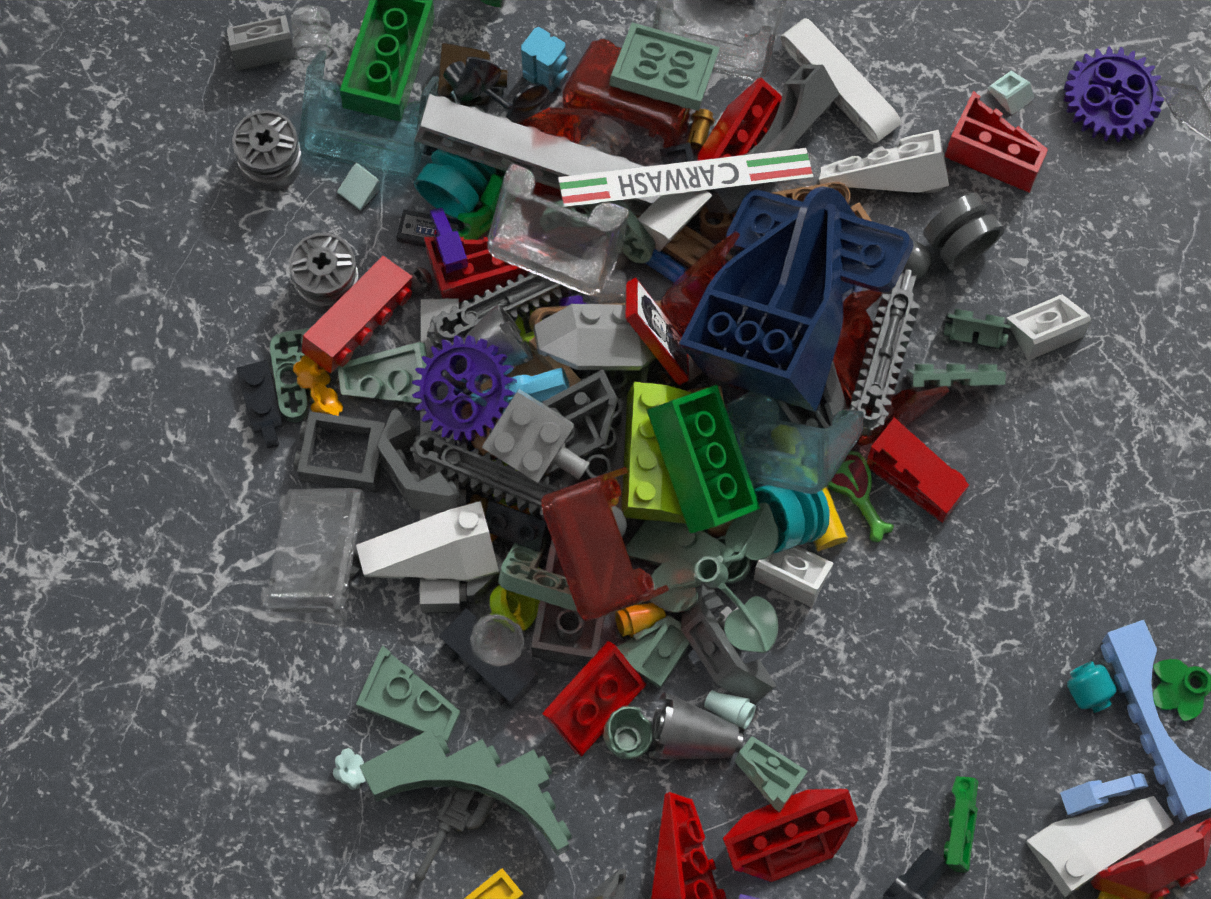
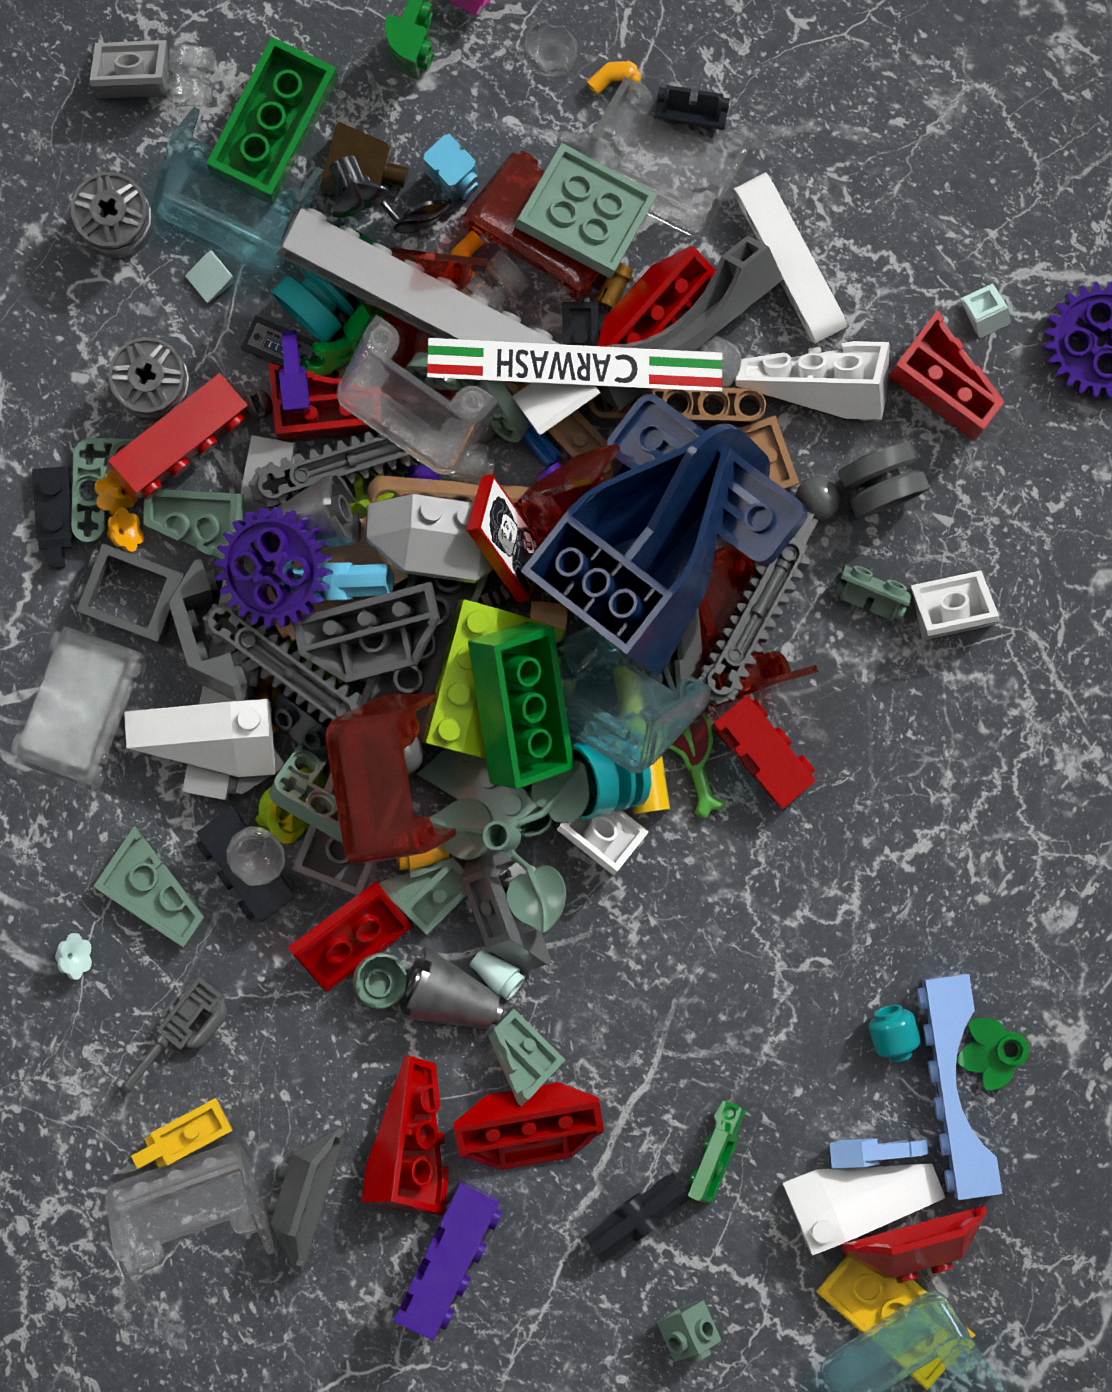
camera: 15 degrees right, 15 degrees up
(518, 783) = (247, 1016): sand green arch -> none
(532, 438) = (335, 647): light grey brick -> none
(955, 372) = (819, 647): sand green wing -> none

